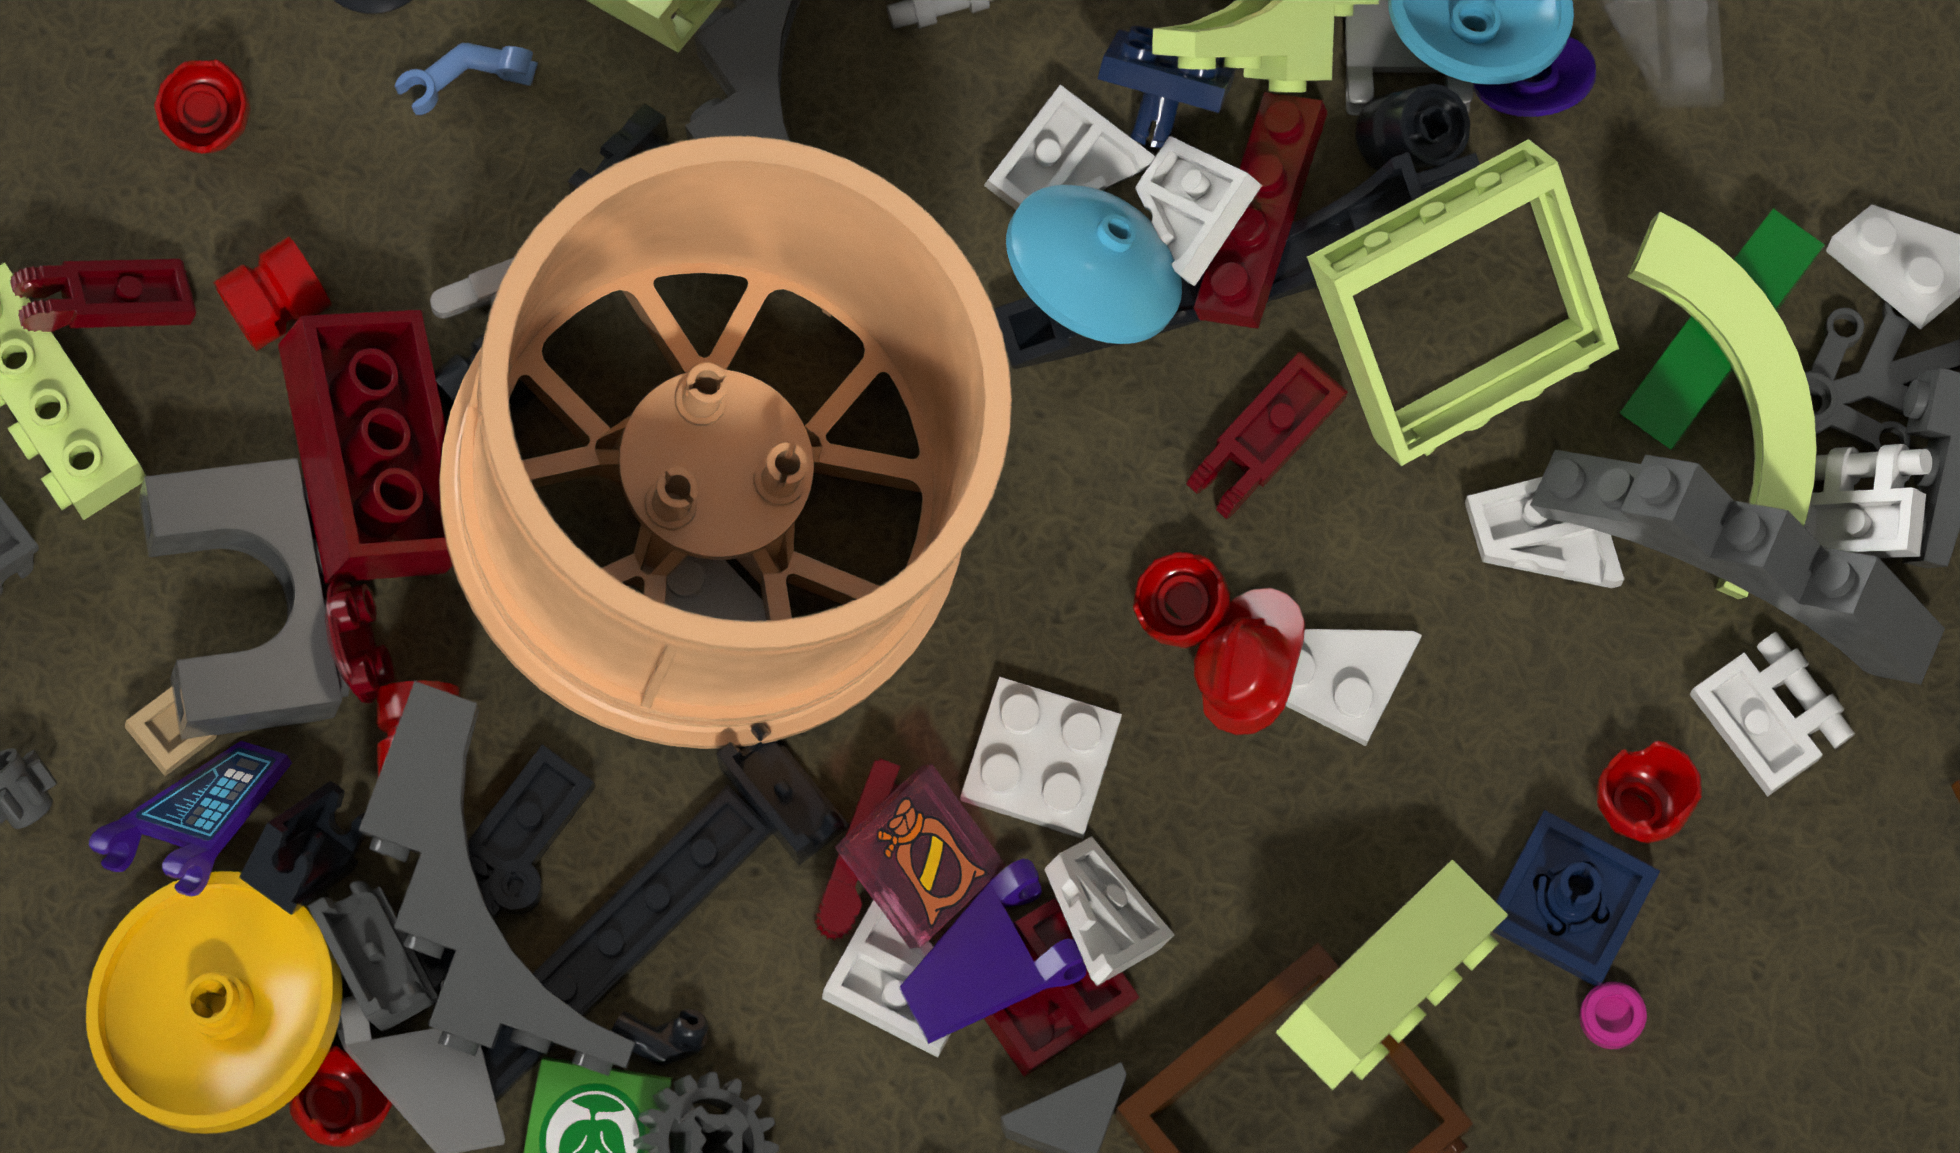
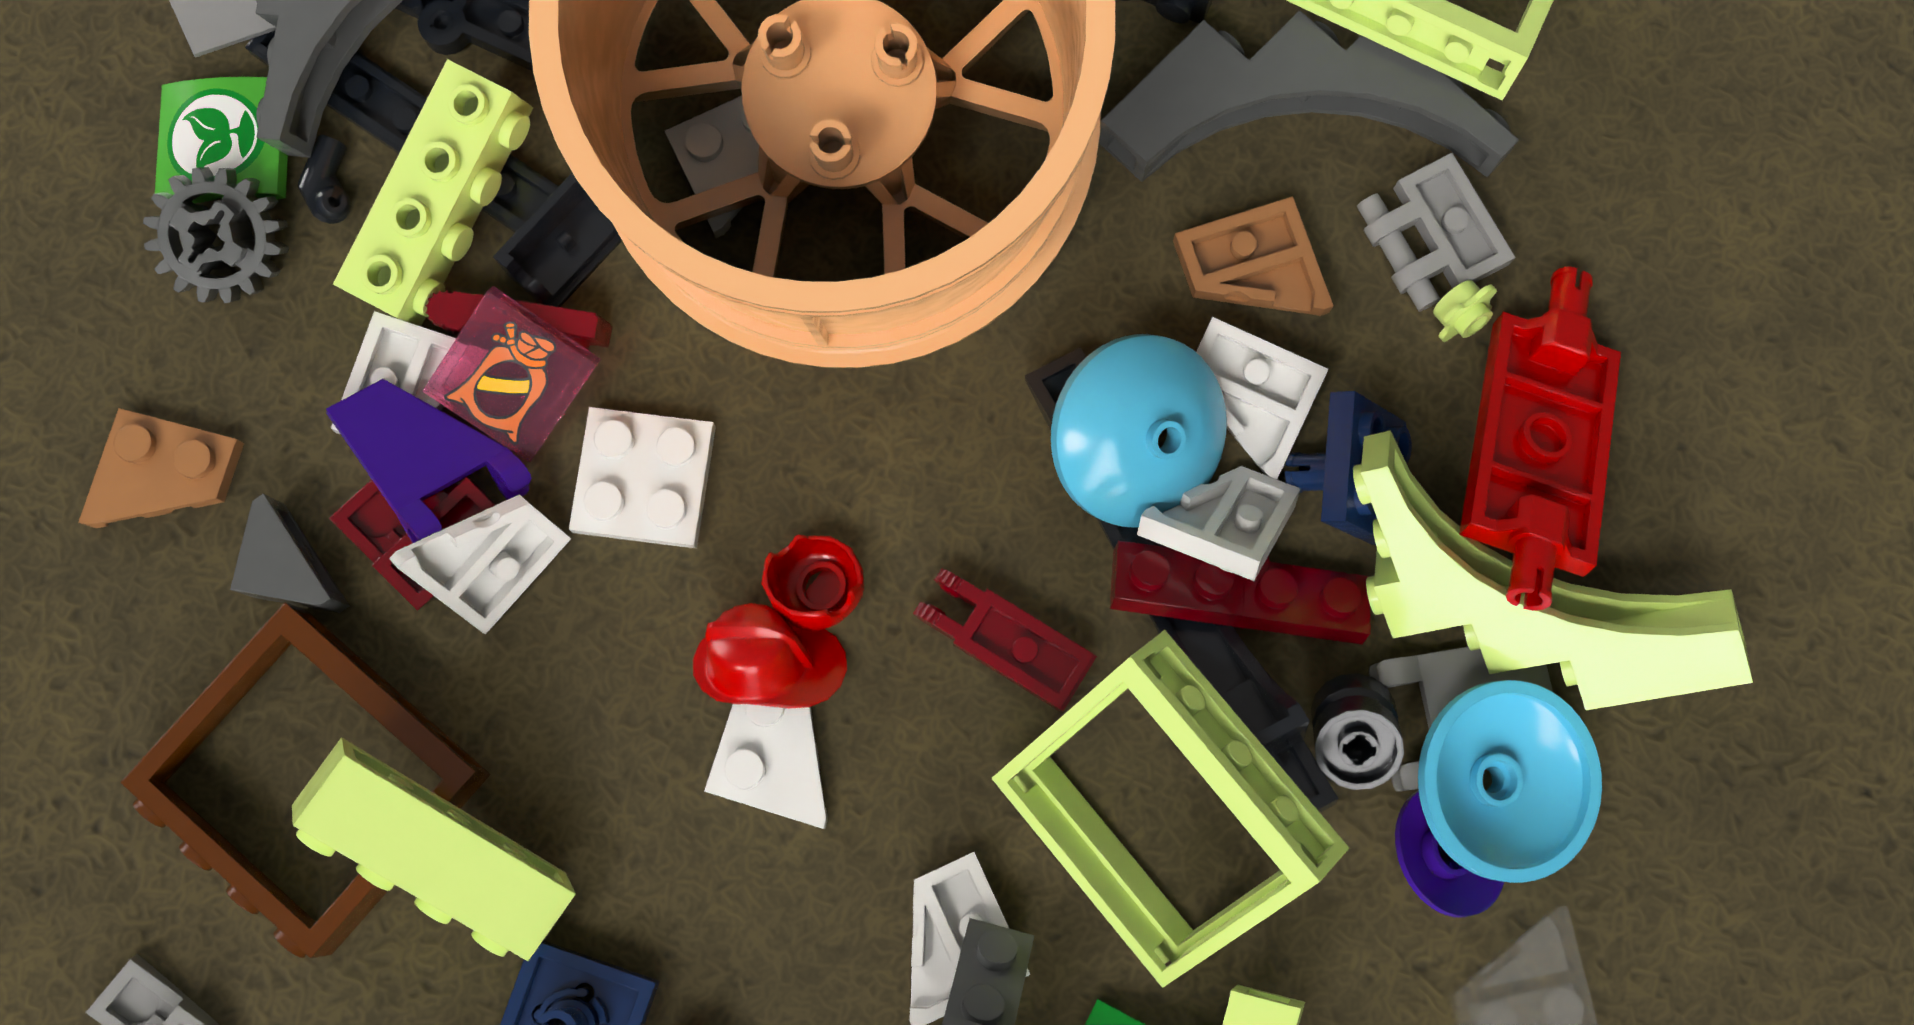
camera: 85 degrees right, 5 degrees up
(714, 908) = (435, 193): none -> yellowish green brick
(934, 130) = (1255, 261): none -> medium nougat wing

